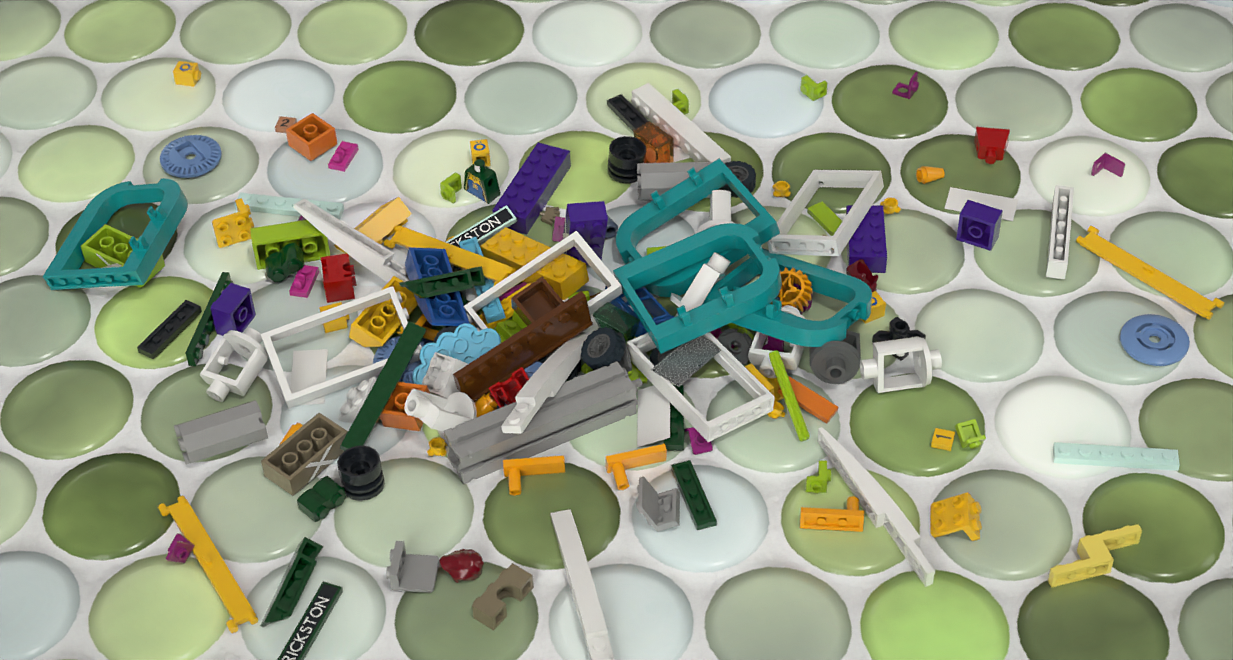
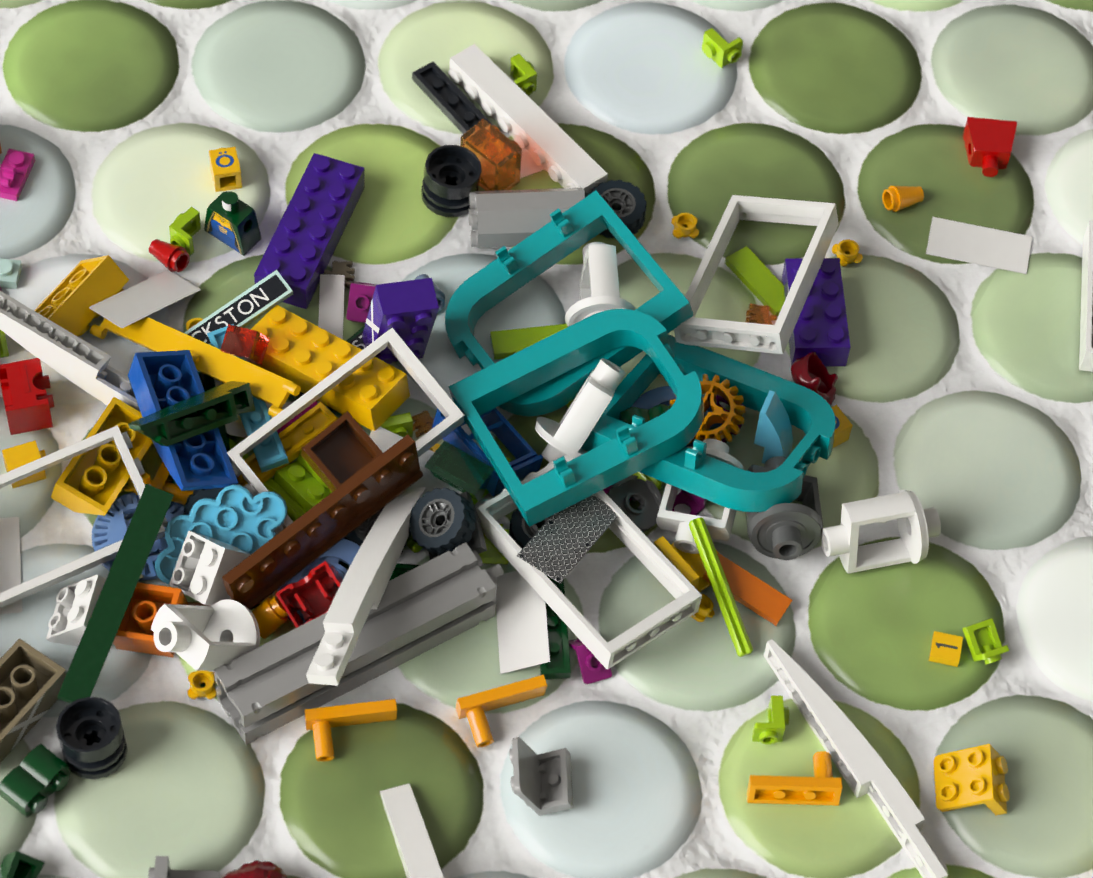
camera: 10 degrees left, 10 degrees up
(420, 224) = (144, 298): none -> white sticker
(439, 201) = (170, 255): none -> red cone
(483, 245) = (245, 344): none -> clear red panel
(543, 228) = (331, 304): none -> white sticker
(693, 495) = (589, 753): dark green tile -> none
(829, 297) = (774, 429): none -> medium azure slope
(898, 330) = (873, 477): black plant -> none
(912, 87) = (866, 46): magenta bracket -> none
(979, 225) = (981, 288): dark purple brick -> none

